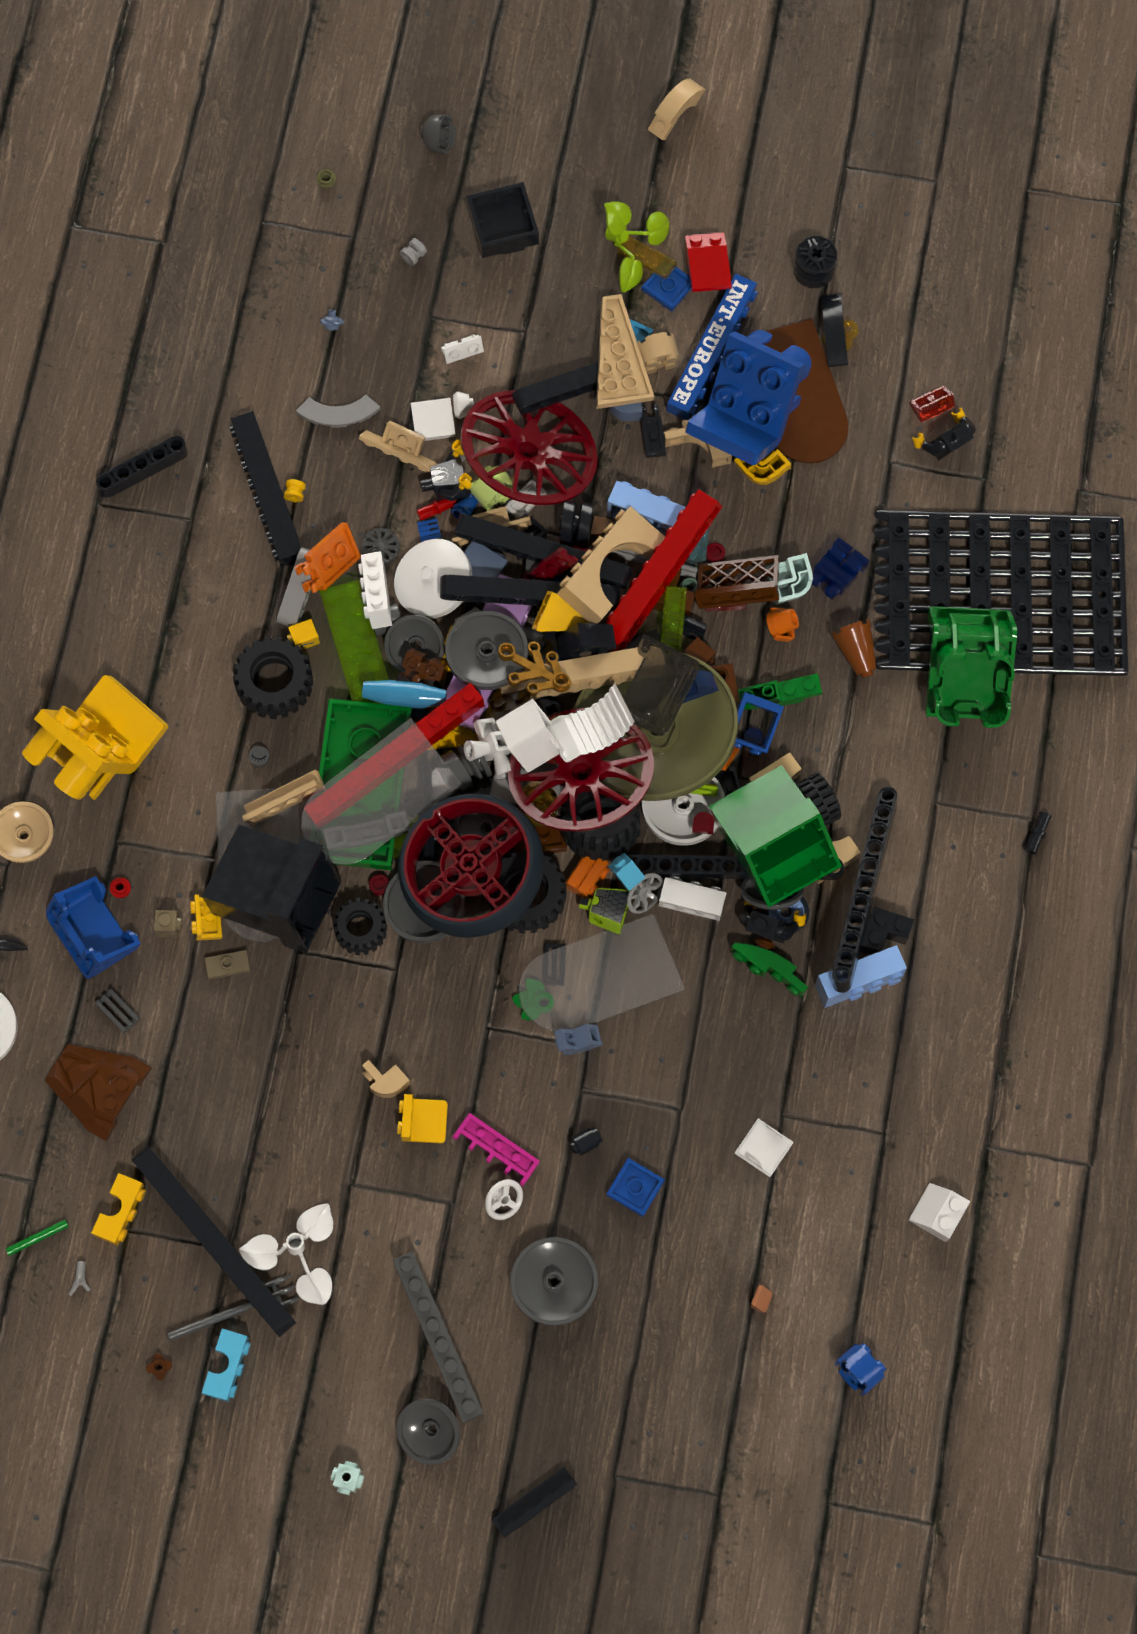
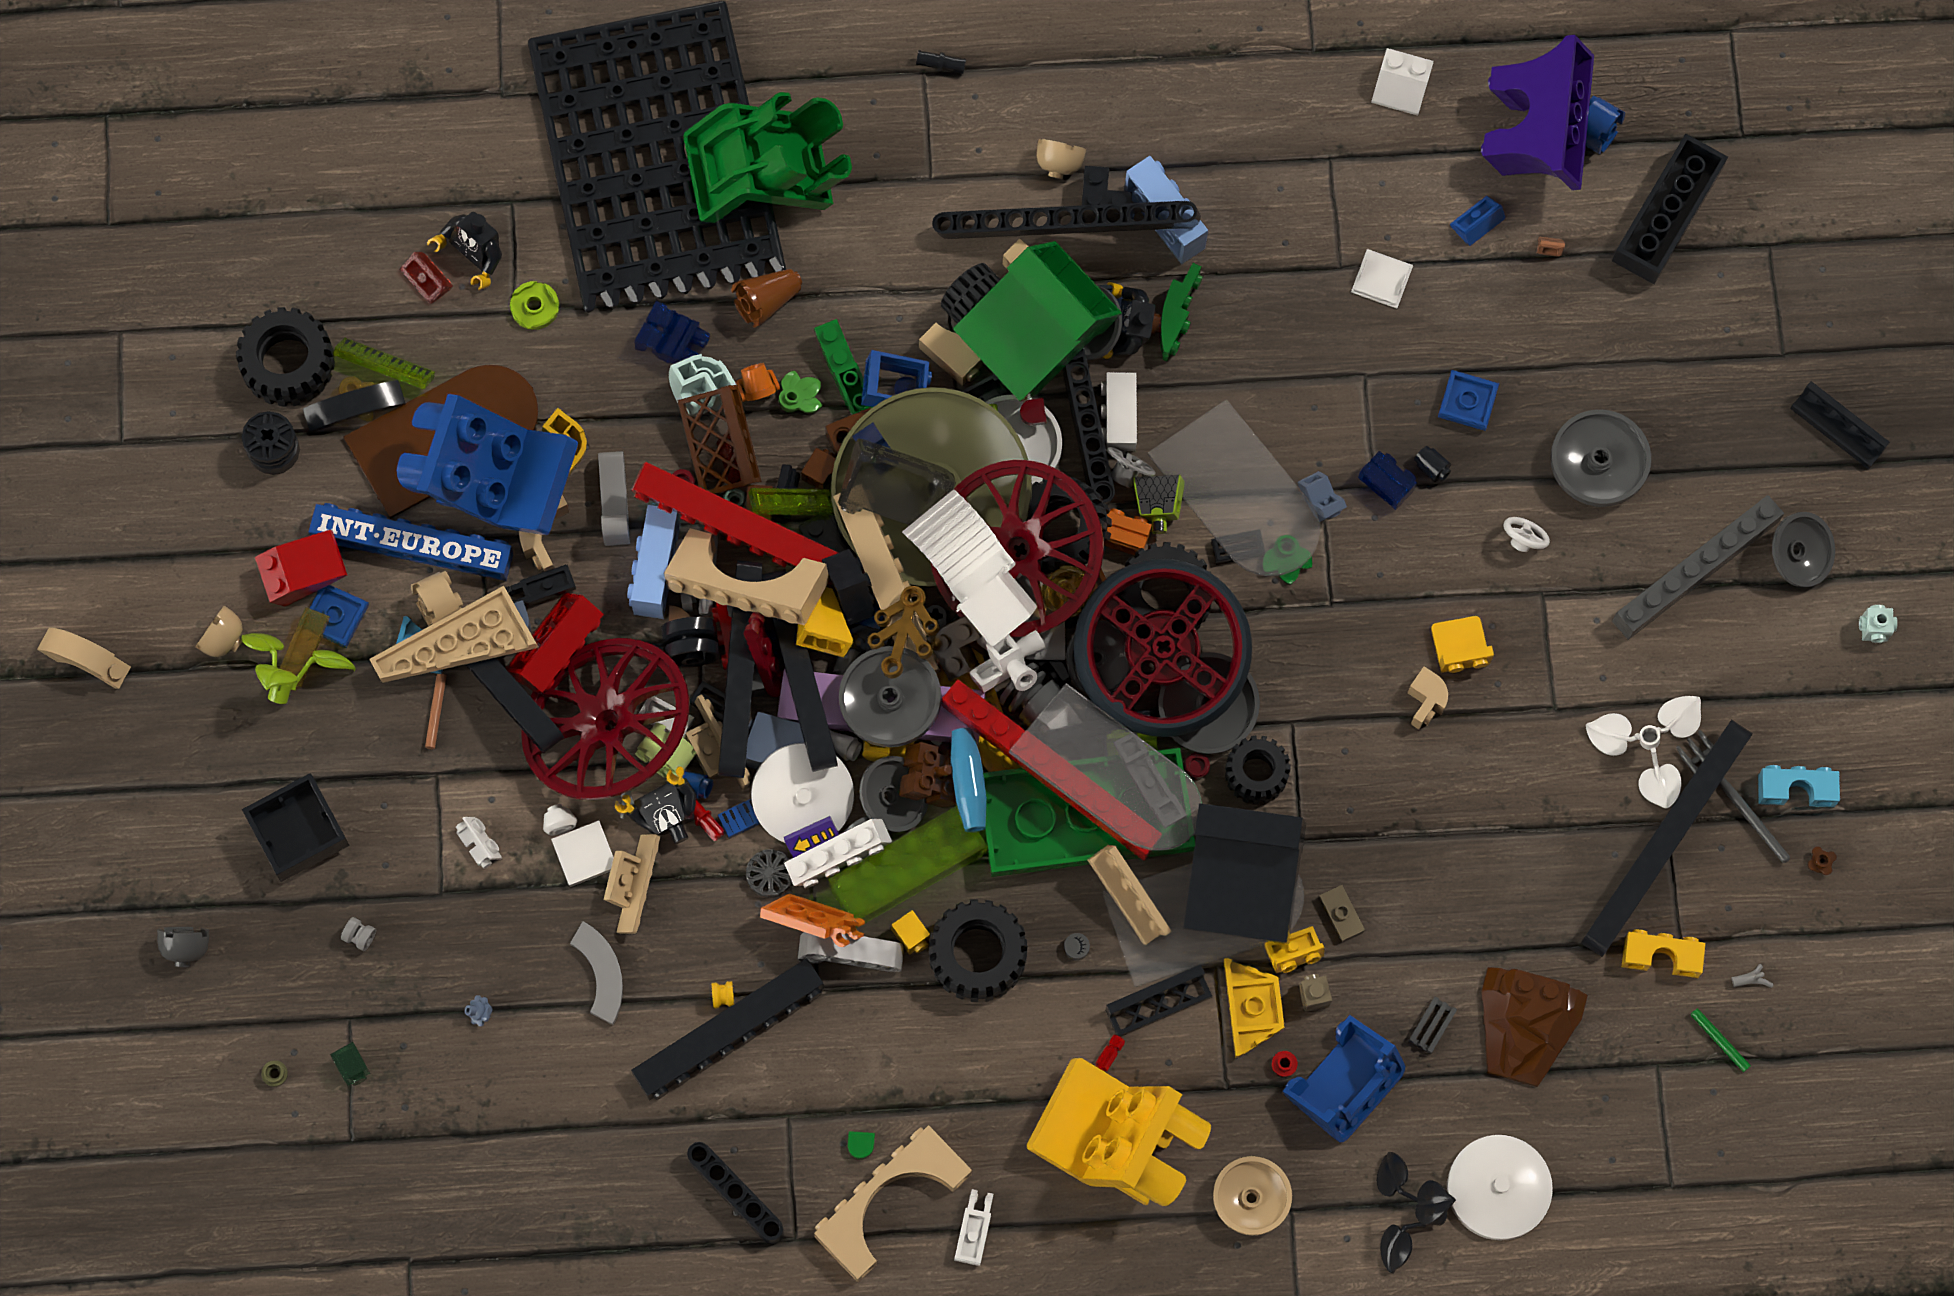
camera: 105 degrees left, 0 degrees up
(62, 627) = (974, 1231): none -> white hinge
(87, 535) = (923, 1157): none -> tan arch
(153, 564) = (860, 1144): none -> green tile
(166, 758) = (1110, 1053): none -> red axle
(173, 875) = (1253, 1006): none -> yellow wing
(203, 802) = (1154, 992): none -> black fence
(316, 228) = (350, 1064): none -> clear green brick
(396, 579) = (811, 836): none -> dark purple tile
(498, 1147) = (1468, 556): dark pink hinge -> none
(572, 339) = (435, 711): none -> nougat bar
(580, 1099) = (1388, 479): none -> clear blue brick
(603, 429) = (557, 638): none -> red slope
(626, 871) = (1119, 478): medium azure brick -> none
(670, 201) = (221, 634): none -> tan cylinder
(733, 500) = (614, 498): none -> light grey beam
(768, 1410) = (1669, 209): none -> black brick
(769, 659) = (802, 391): none -> bright green plate
(798, 1243) = (1478, 220): none -> blue slope
(864, 356) = (384, 363): none -> clear neon green tile
(871, 1325) = (1558, 101): none -> dark purple piece
(884, 262) = (276, 328): none -> black tyre
(890, 487) = (537, 318): none -> lime tile
(928, 904) = (1059, 158): none -> tan cylinder

